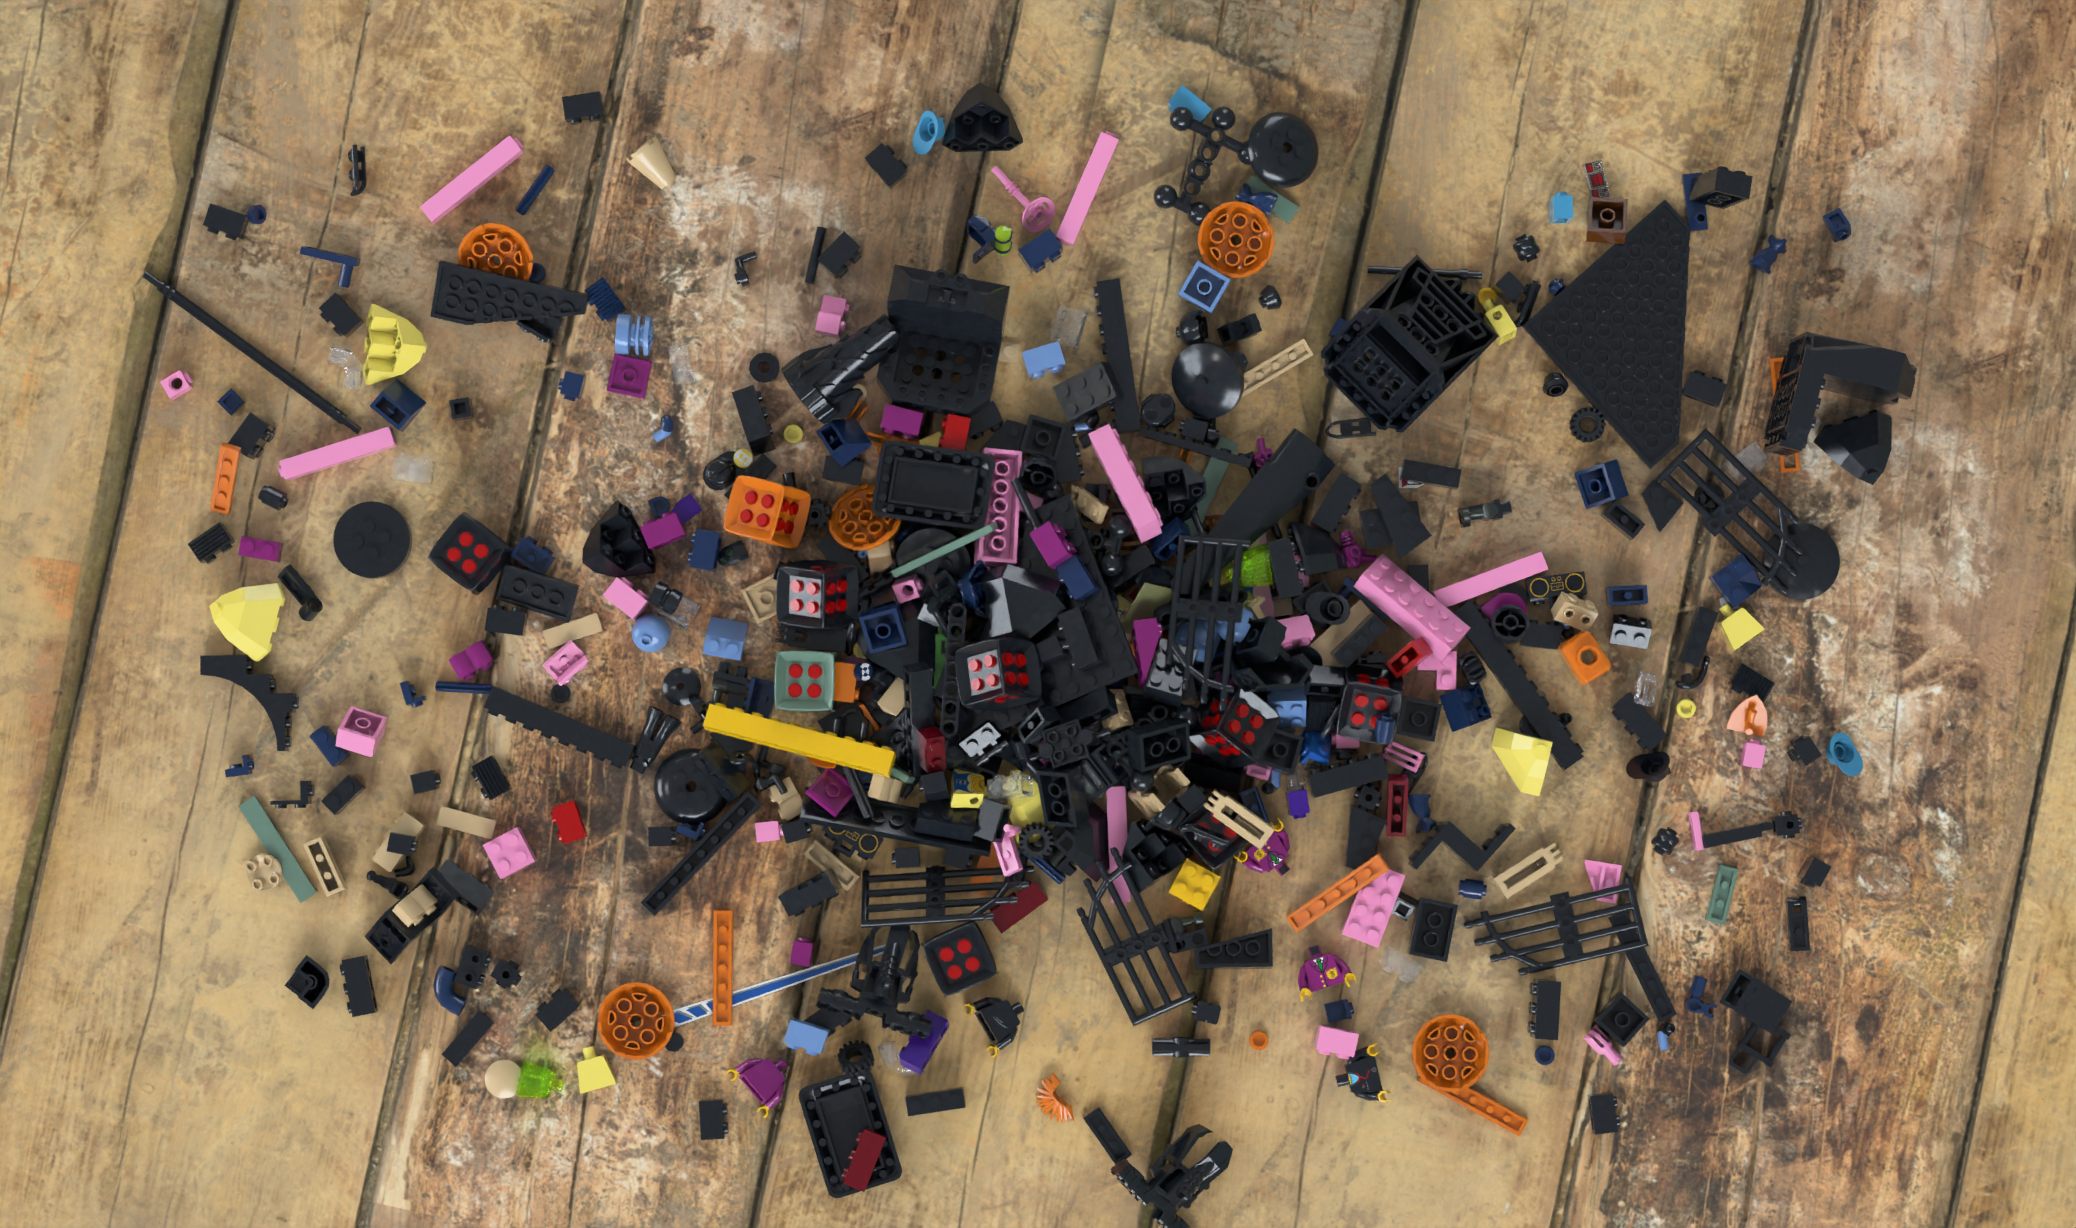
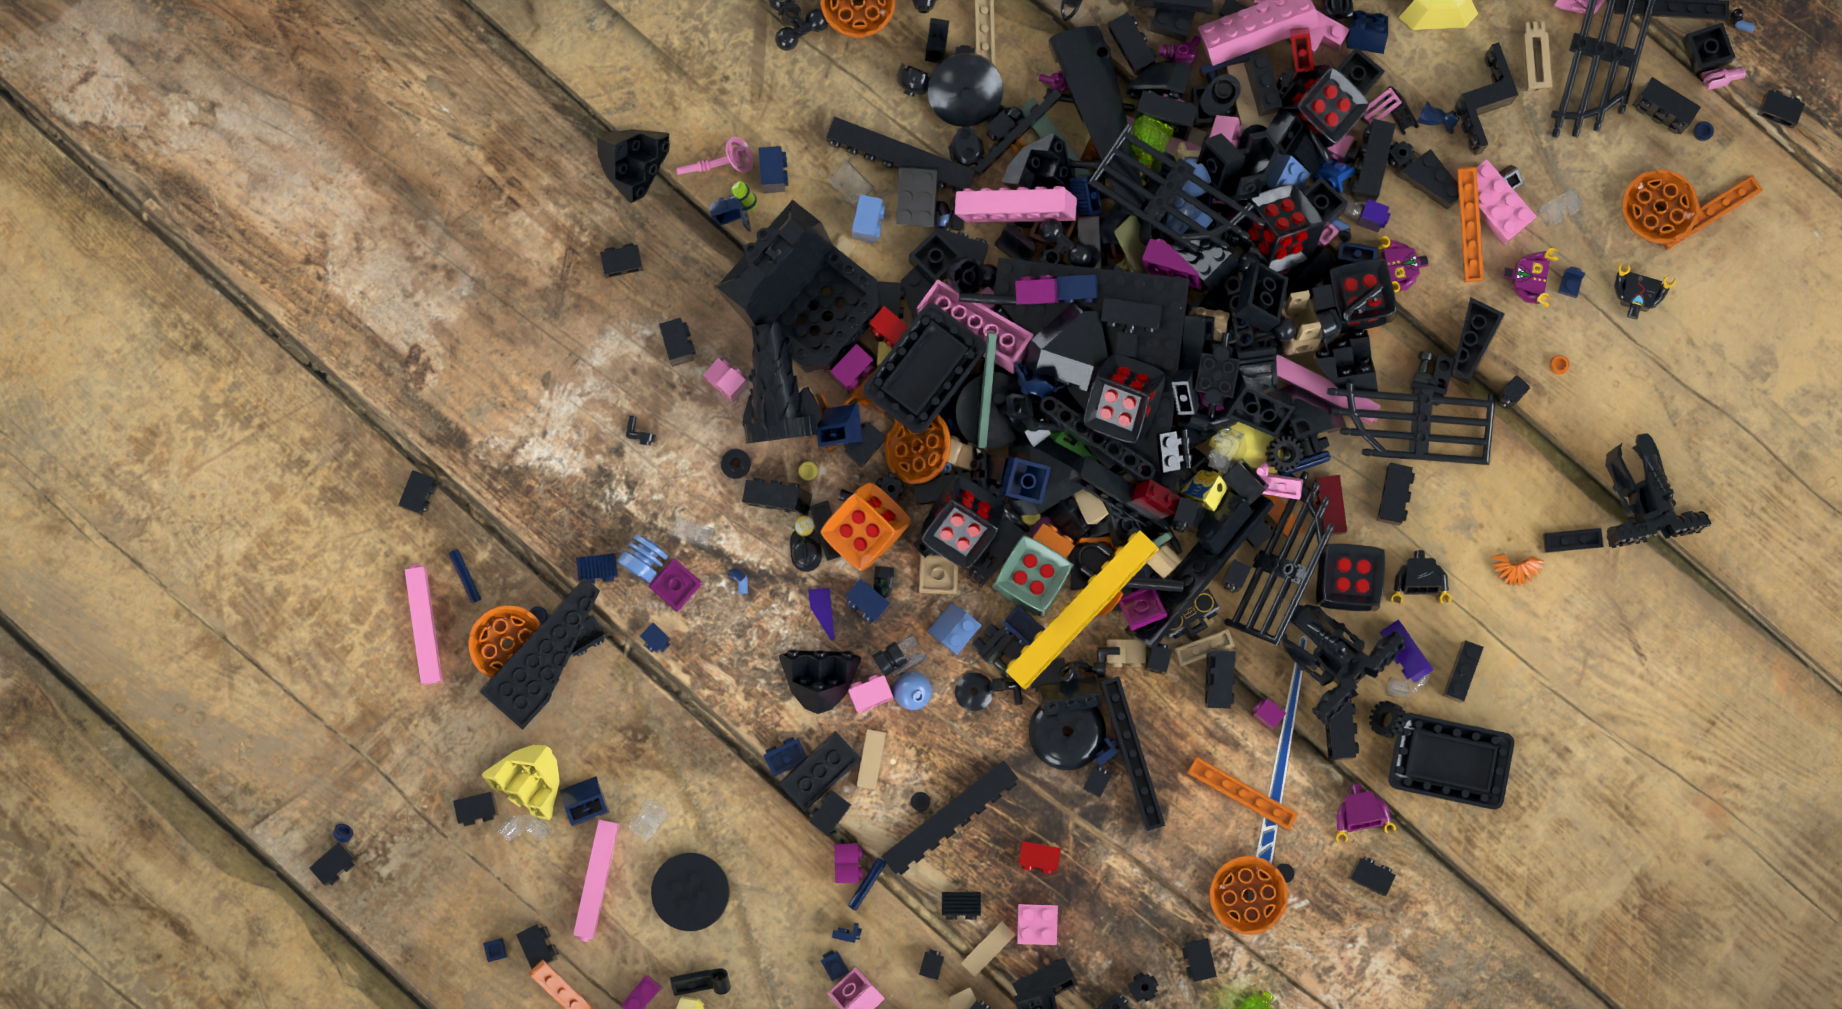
camera: 65 degrees left, 5 degrees down
(168, 384) = (448, 997): bright pink brick -> none
(251, 352) = (462, 906): black axle -> none
(273, 497) = (602, 959): black brick -> none
(347, 262) = (433, 776): dark blue piece -> none
(355, 174) = (358, 725): black piece -> none
(379, 698) = (834, 965): none -> dark blue bracket
(461, 409) = (620, 747): black brick -> none
(470, 553) = (753, 808): black piece -> none
(566, 663) = (896, 780): bright pink bracket -> none
(594, 1071) = (1273, 958): light yellow torso -> none
(648, 749) = (1012, 751): black piece -> none
(653, 163) = (502, 459): tan cone -> none
(659, 506) = (804, 622): dark blue tile -> none
(663, 531) = (830, 628): magenta brick -> none
(768, 831) = (1144, 685): bright pink brick -> none
(772, 767) = (1090, 650): black plate -> none
(806, 1036) = (1348, 746): medium blue brick -> none
(816, 252) = (663, 365): black piece -> none
(863, 671) = (1052, 522): dark blue tile -> none
(863, 1159) = (1482, 760): dark red brick -> none
(902, 593) = (1004, 450): bright pink brick -> none
(929, 130) = (613, 209): dark azure piece -> none
(1060, 958) = (1395, 494): none -> black brick
(1087, 188) = (740, 100): bright pink brick -> none
(1088, 503) = (1015, 248): tan plate -> none
(1180, 1047) = (1530, 433): black piece -> none
(1195, 884) = (1395, 343): yellow brick -> none
(1204, 287) = (883, 50): medium blue brick -> none
(1246, 822) = (1370, 261): tan hinge -> none
(1336, 1040) = (1595, 299): bright pink brick -> none
(1384, 728) = (1354, 98): dark blue brick -> none
(1397, 805) = (1422, 132): dark red brick -> none
(1432, 929) = (1545, 163): black brick -> none
(1472, 889) = (1527, 112): dark blue brick -> none

